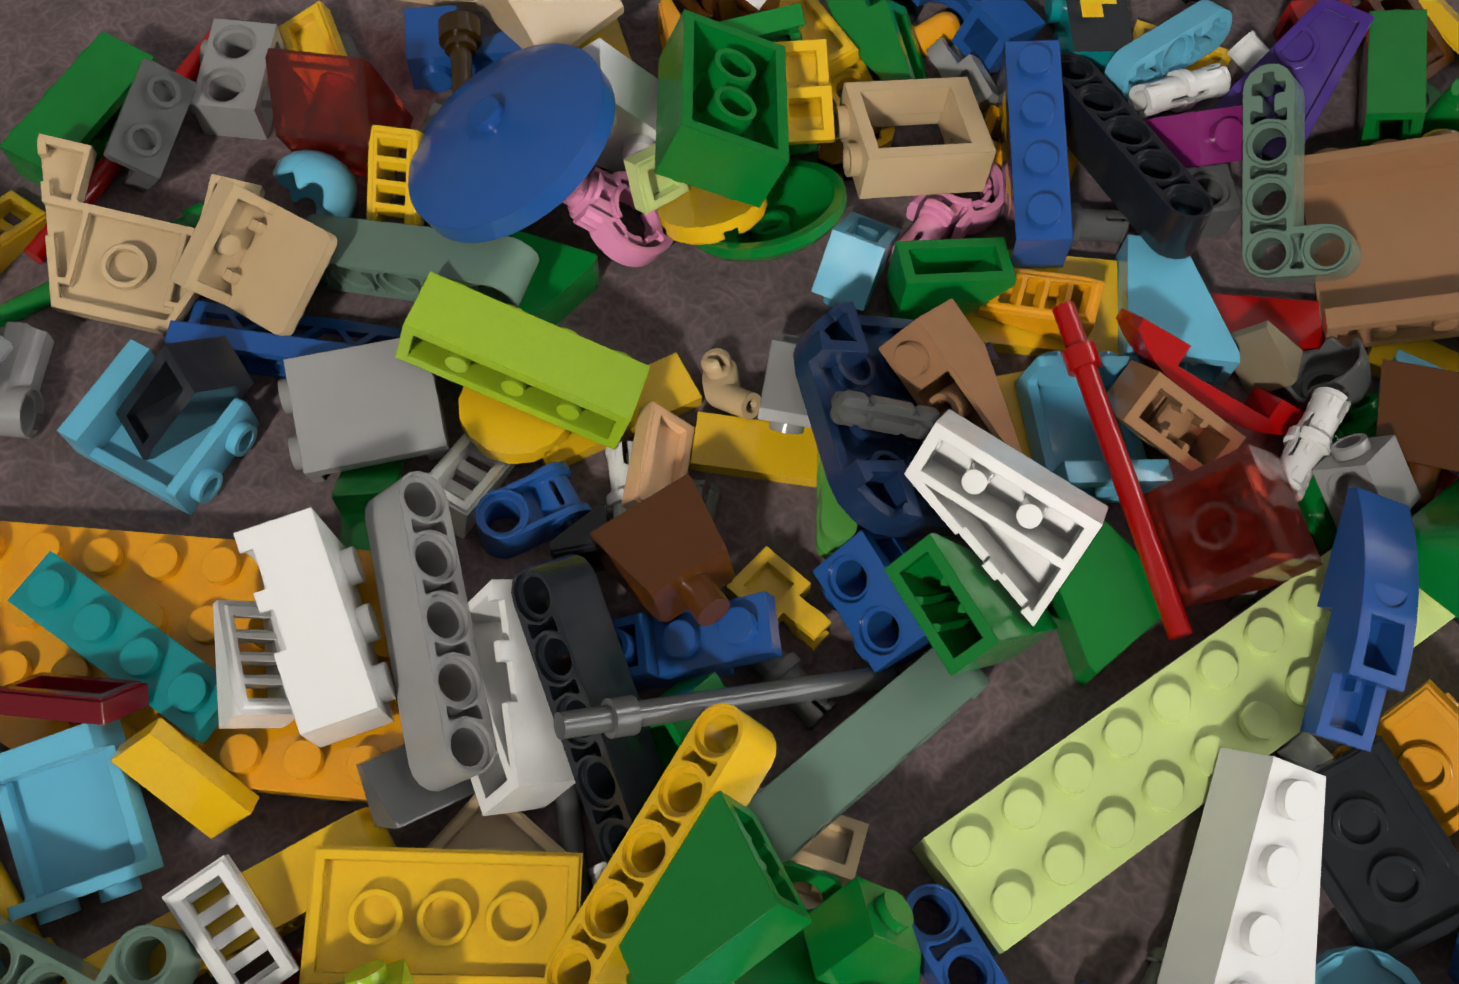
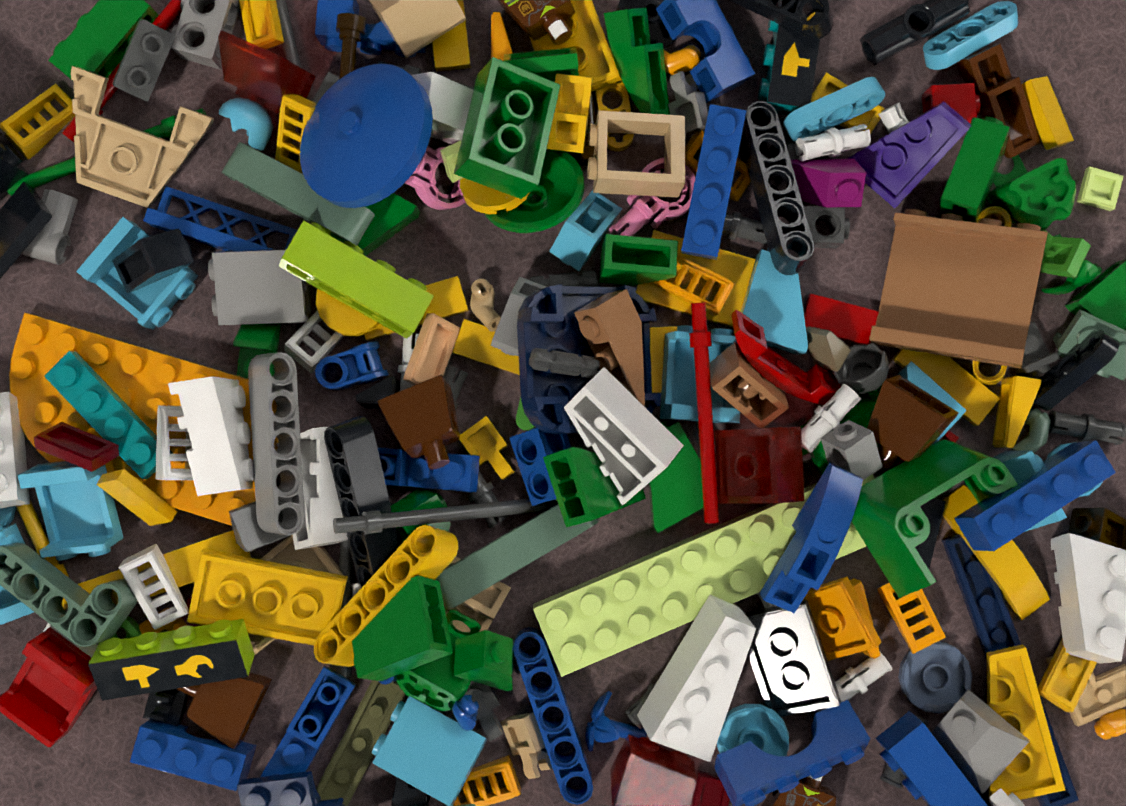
camera: 15 degrees right, 20 degrees up
(255, 258) = (204, 173): tan bracket -> none
(1287, 175) = (878, 230): sand green beam -> none

